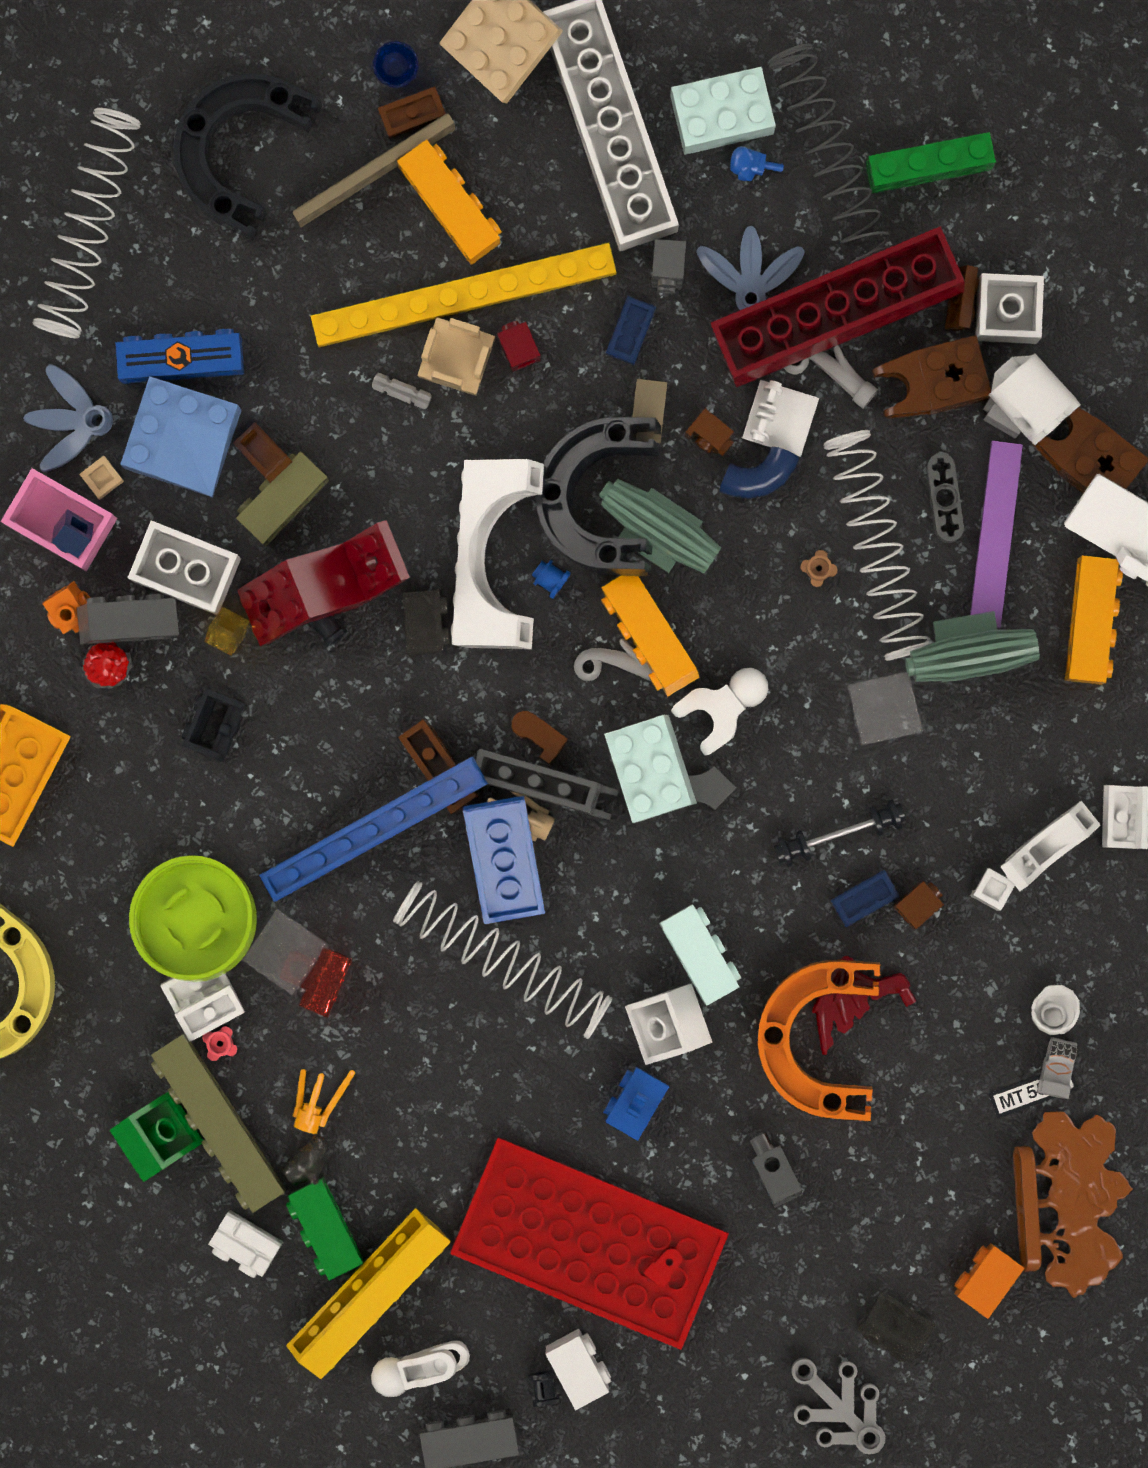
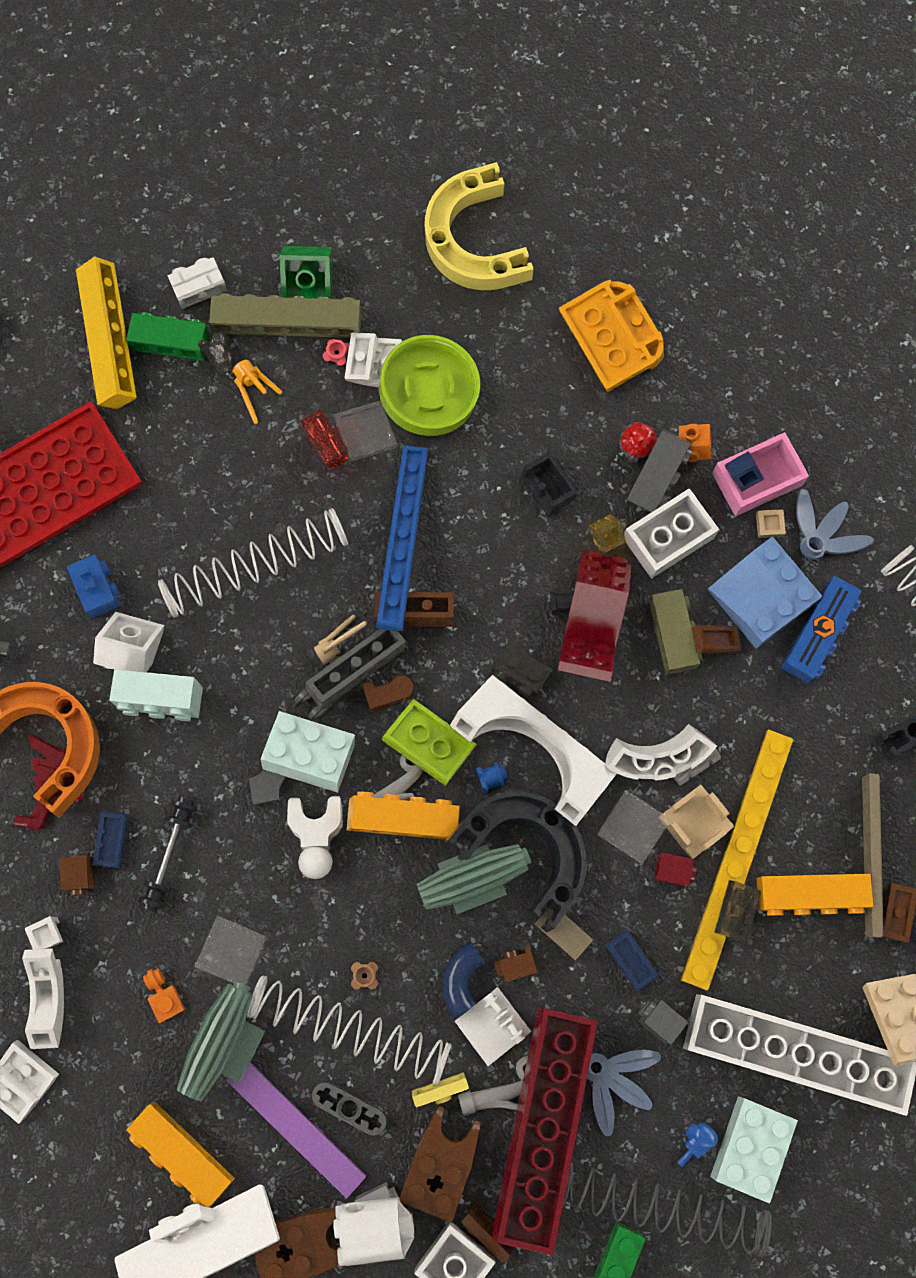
camera: 125 degrees right, 10 degrees down
(420, 428) = (660, 760): none -> white brick
(421, 1369) = (33, 333): white piece -> none
(503, 411) = (634, 826): none -> clear tile
(503, 859) = (319, 608): plate -> none
(518, 260) = (737, 912): none -> clear smoke bracket
(559, 662) = (428, 742): none -> lime tile
(872, 421) = (441, 1092): none -> light yellow plate
(973, 736) = (166, 1001): none -> orange plate

